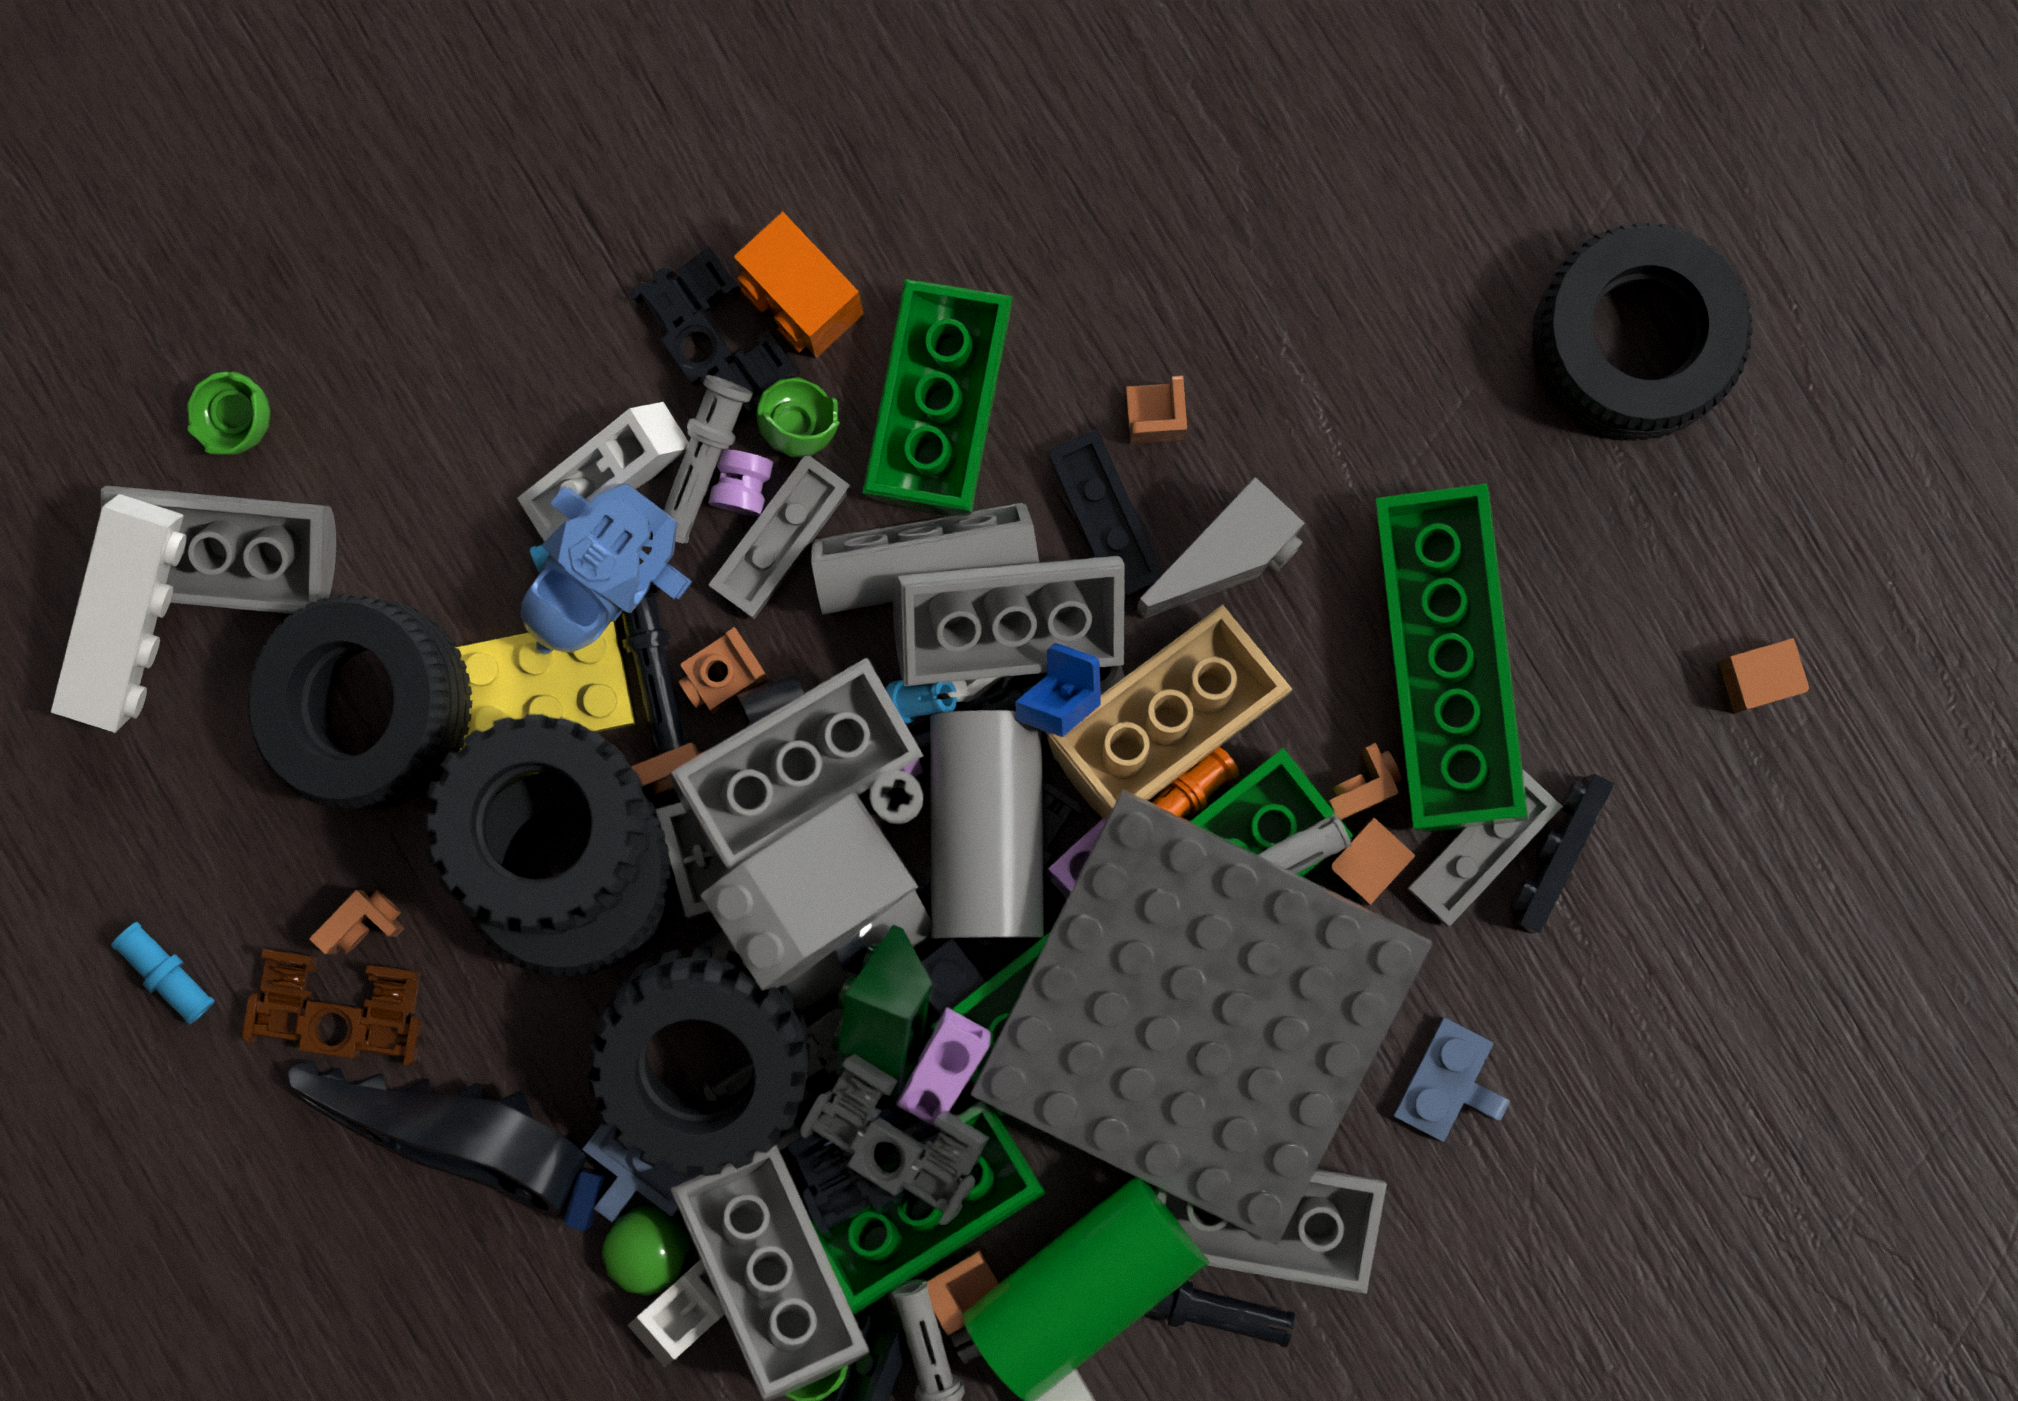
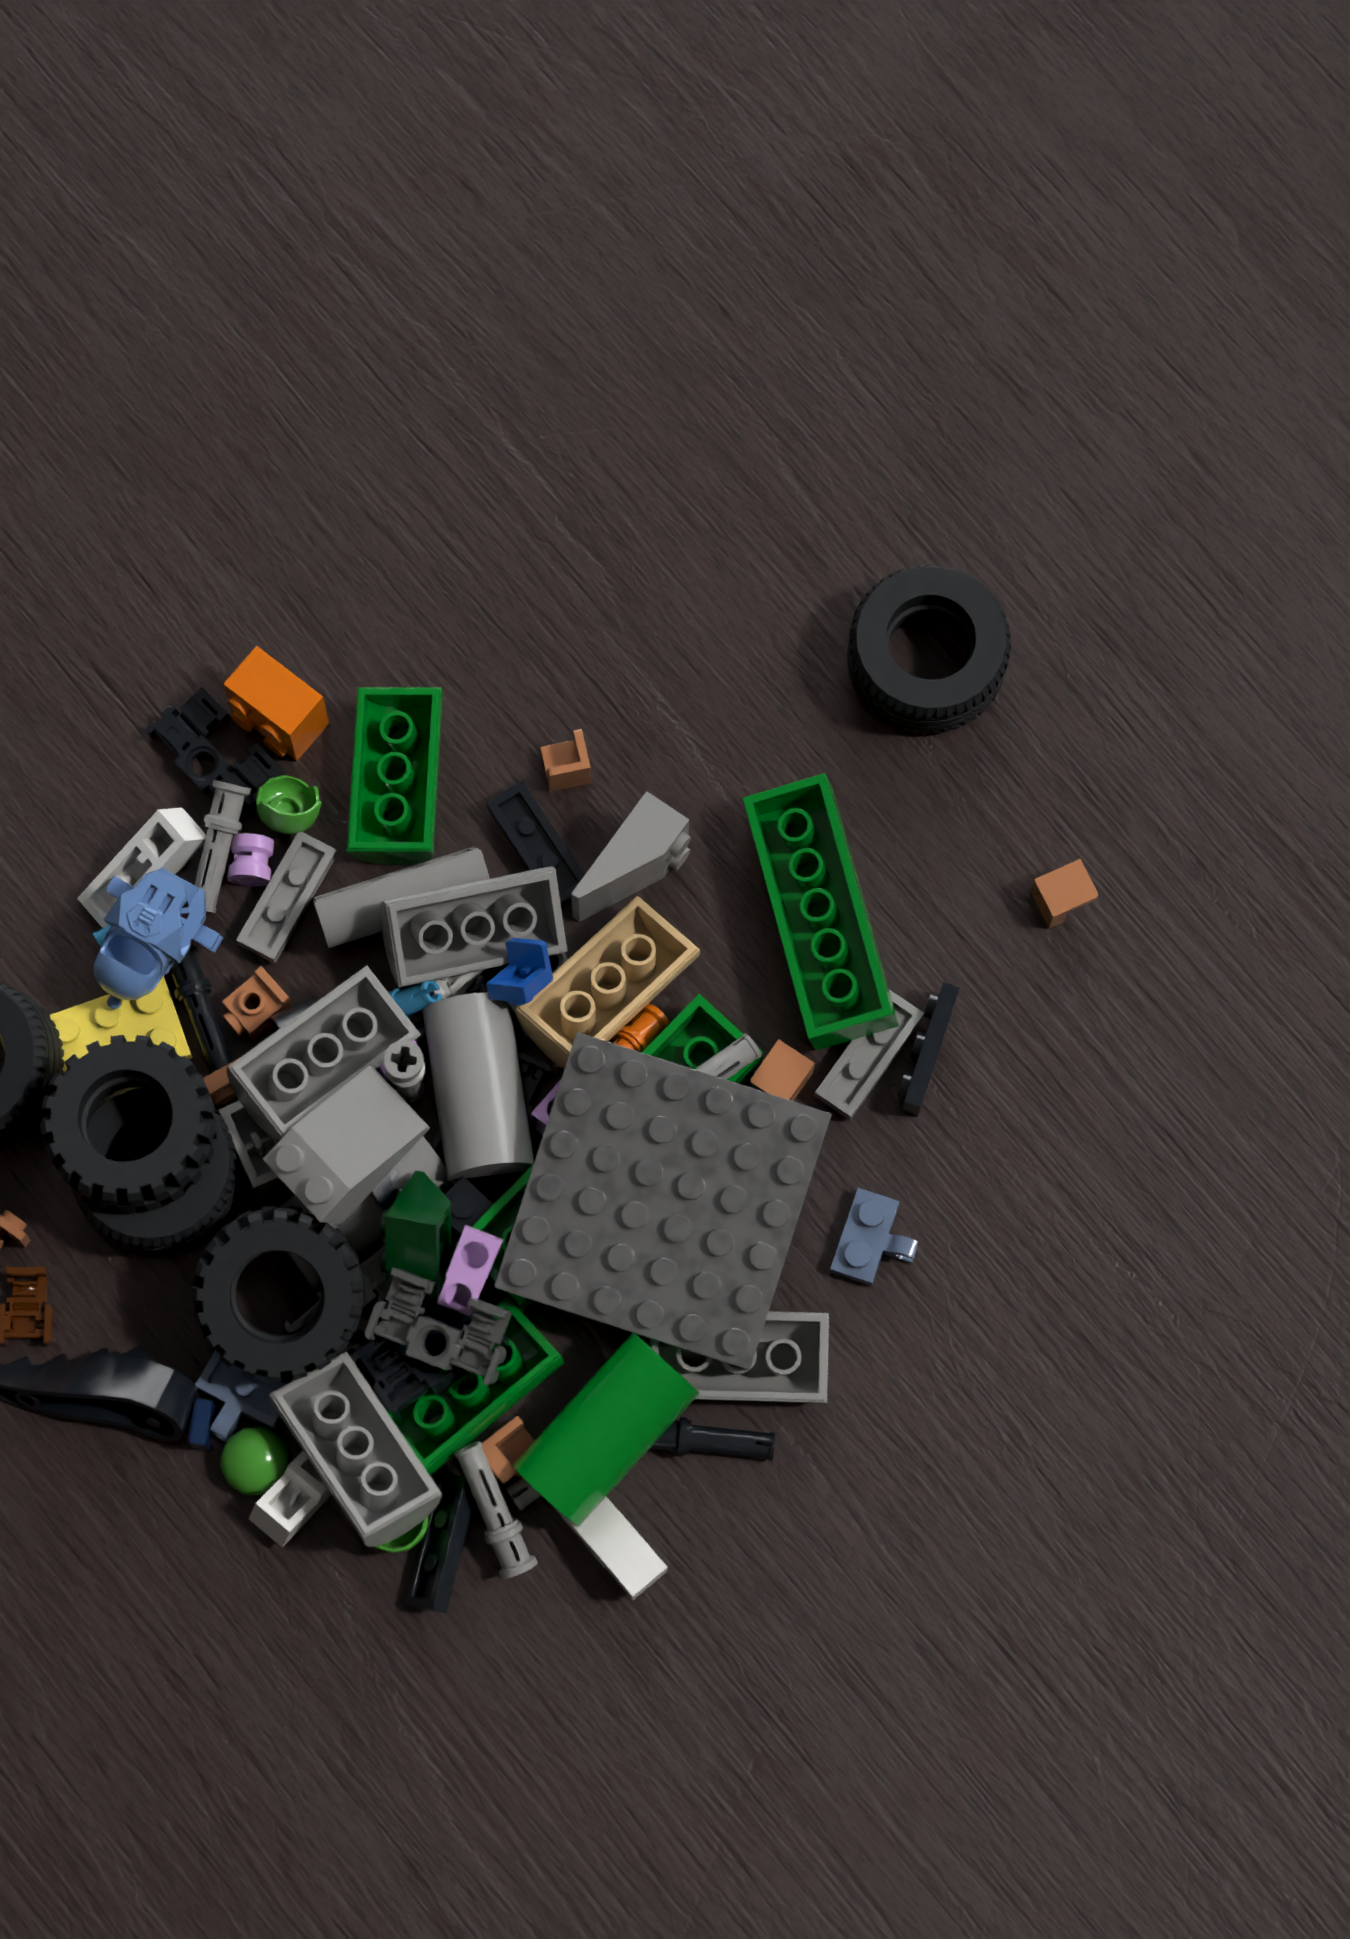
camera: 10 degrees left, 10 degrees down
(1357, 795) = (767, 1028): nougat bracket -> none

